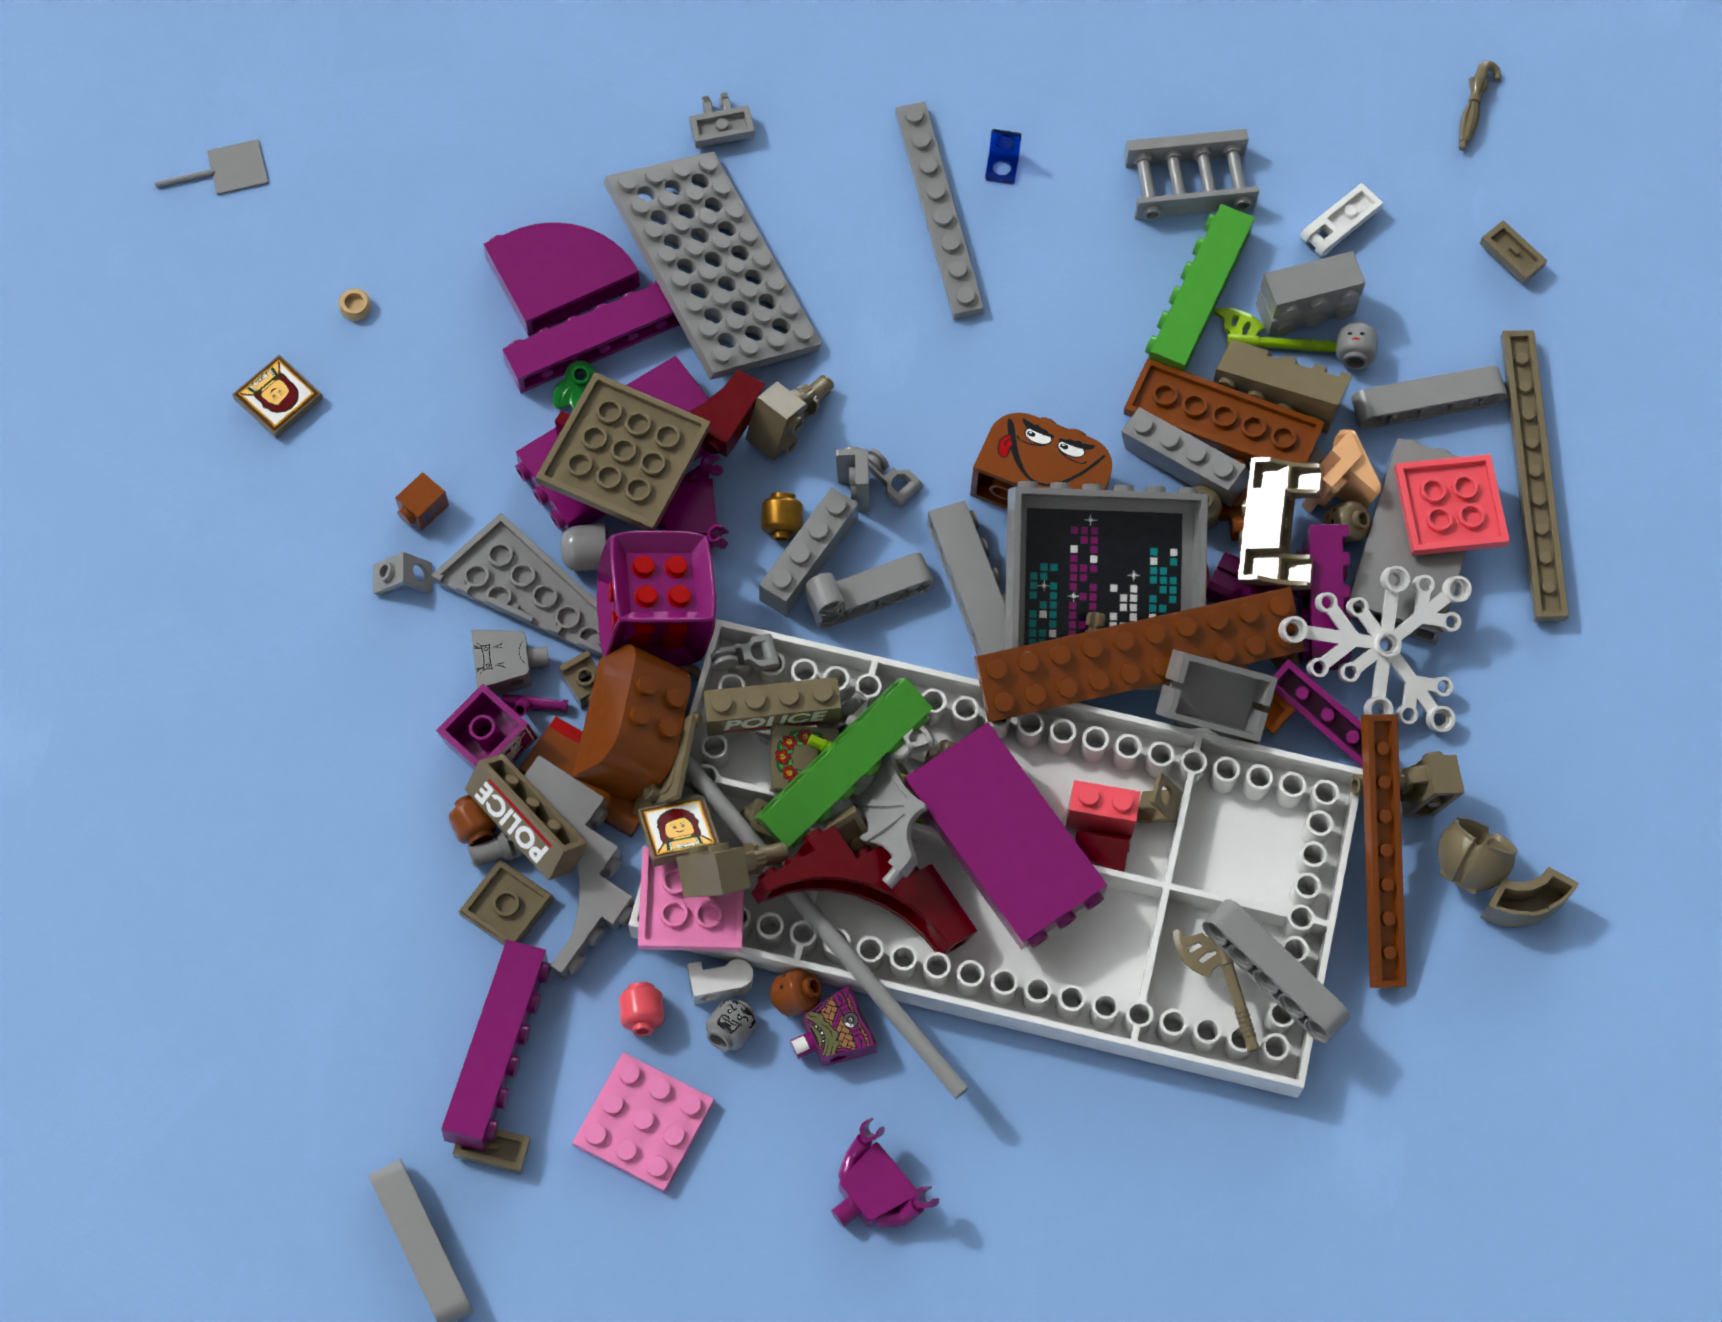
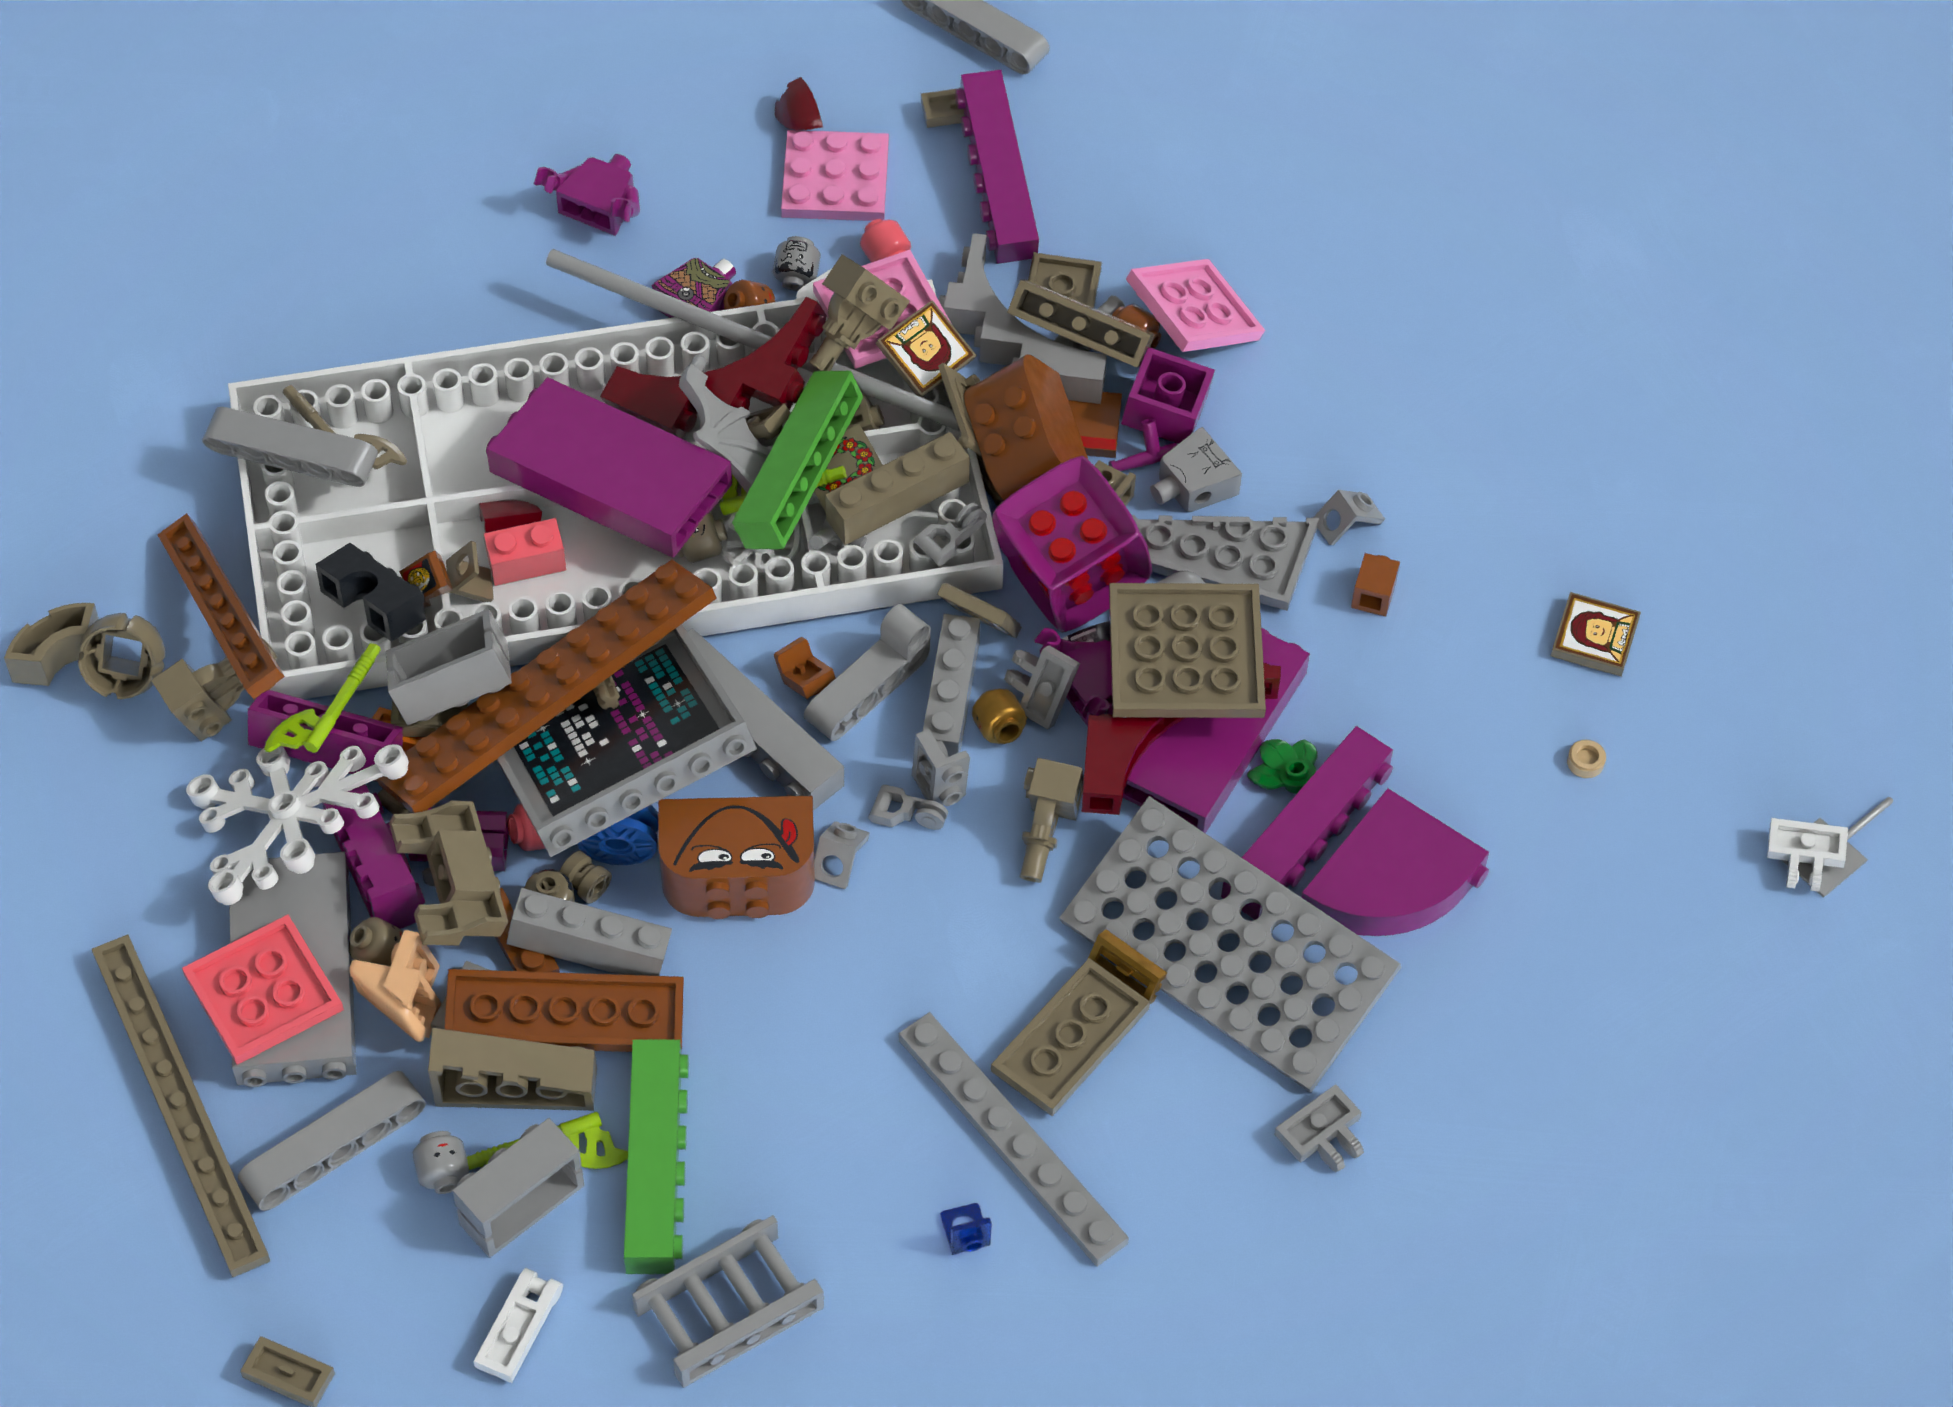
camera: 155 degrees right, 10 degrees down
(245, 166) = (1807, 844): none -> white hinge
(409, 813) = (1195, 305): none -> bright pink plate
(645, 1202) = (798, 107): none -> dark red brick
(739, 515) = (1046, 687): none -> light grey hinge
(753, 595) = (979, 609): none -> dark tan tile
(794, 282) = (1128, 963): none -> pearl gold tile
(860, 255) = (1070, 1036): none -> dark tan plate
(915, 618) = (802, 670): none -> dark orange bracket
(954, 465) = (843, 842): none -> light grey bracket
(1202, 799) = (428, 575): none -> slope
(1258, 833) = (389, 601): none -> black arch
(1346, 686) = (321, 726): none -> lime piece

